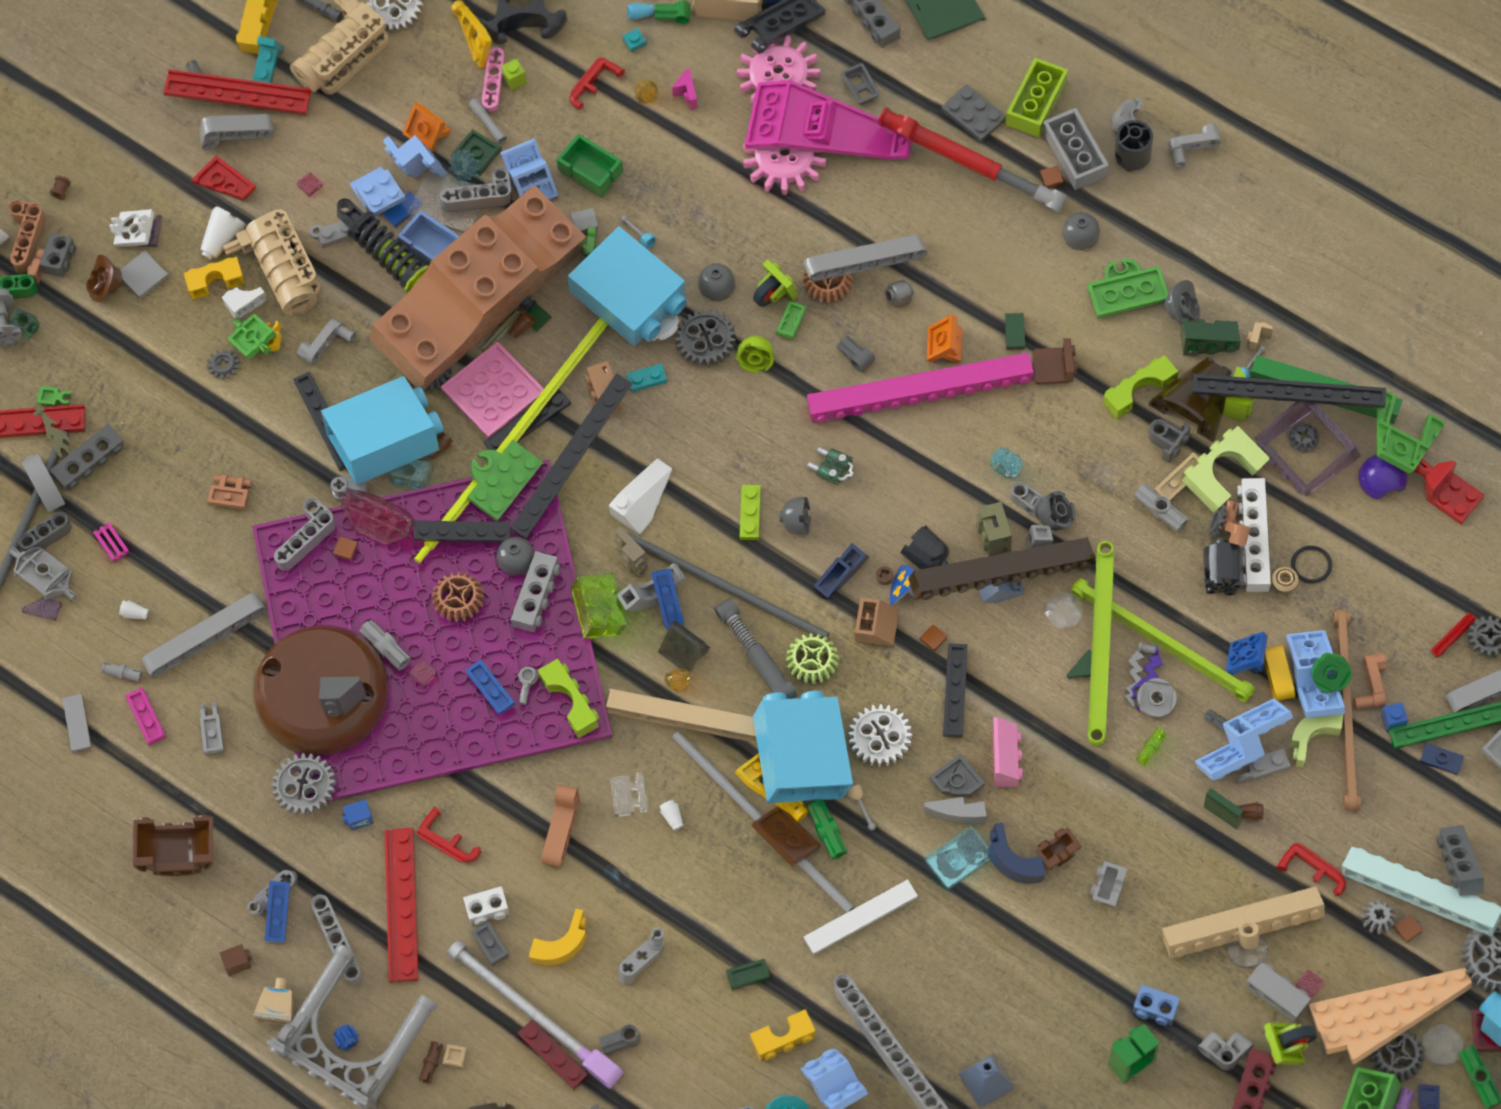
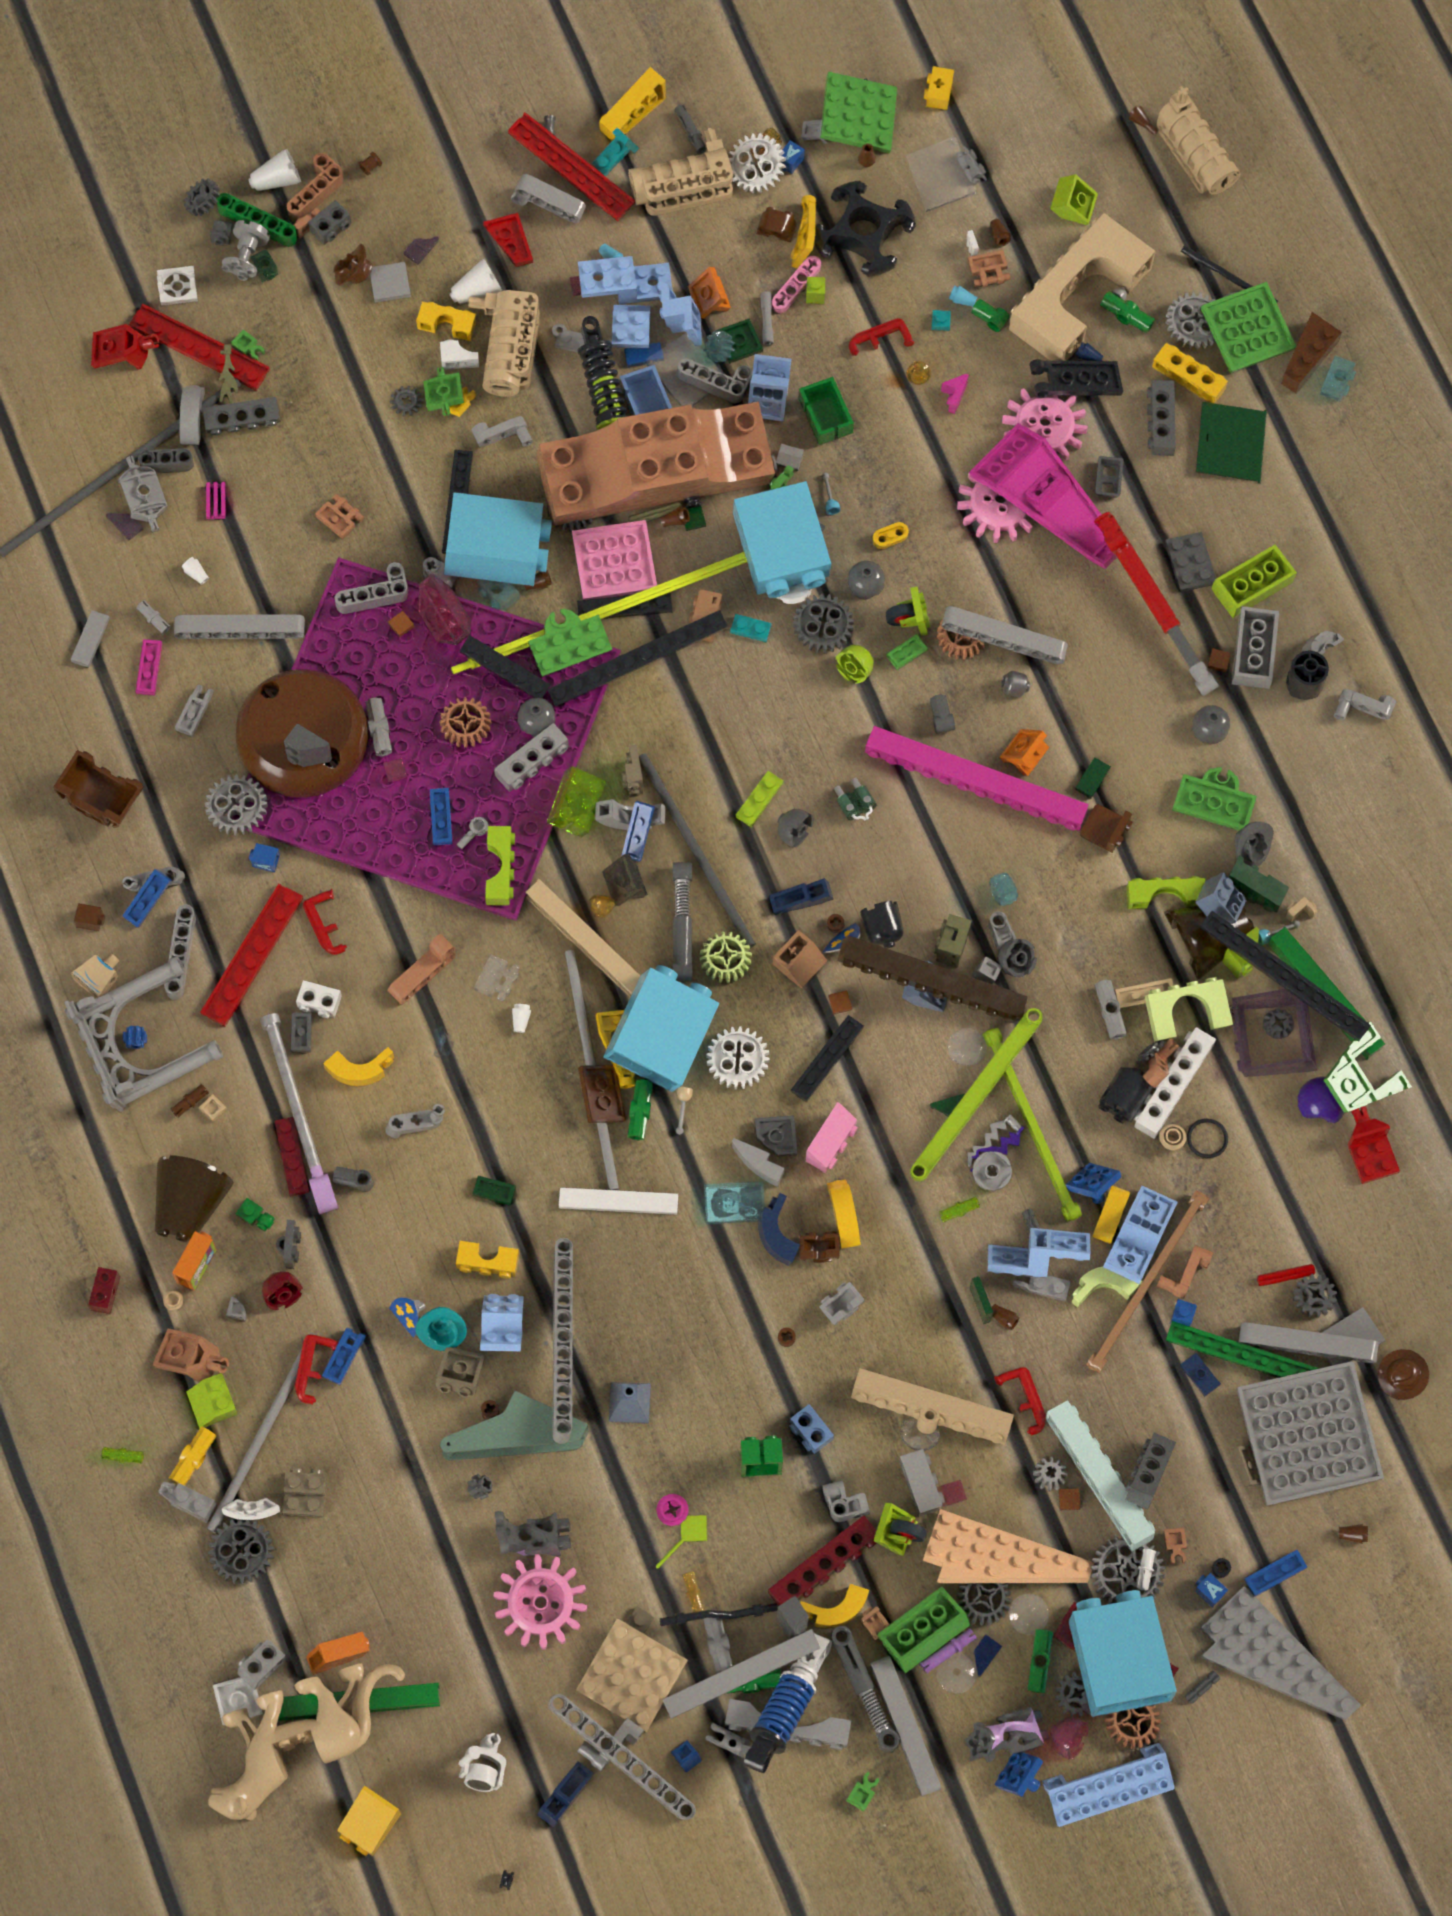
camera: 25 degrees right, 5 degrees up
(118, 228) = (418, 235): white piece -> none
(321, 145) = (608, 252): none -> medium azure cone
(345, 157) = (623, 279): none -> light blue bracket
(443, 40) = (777, 224): none -> reddish brown cylinder
(640, 498) = (674, 730): white wedge -> none
(712, 236) = (889, 535): none -> yellow plate
(1059, 806) = (844, 1213): none -> yellow arch
(1076, 938) = (784, 1331): none -> reddish brown bush
(1170, 439) = (1160, 954): dark grey pin -> none
(1189, 360) = (1221, 897): none -> sand blue slope
(1328, 662) = (1157, 1234): green plate -> none

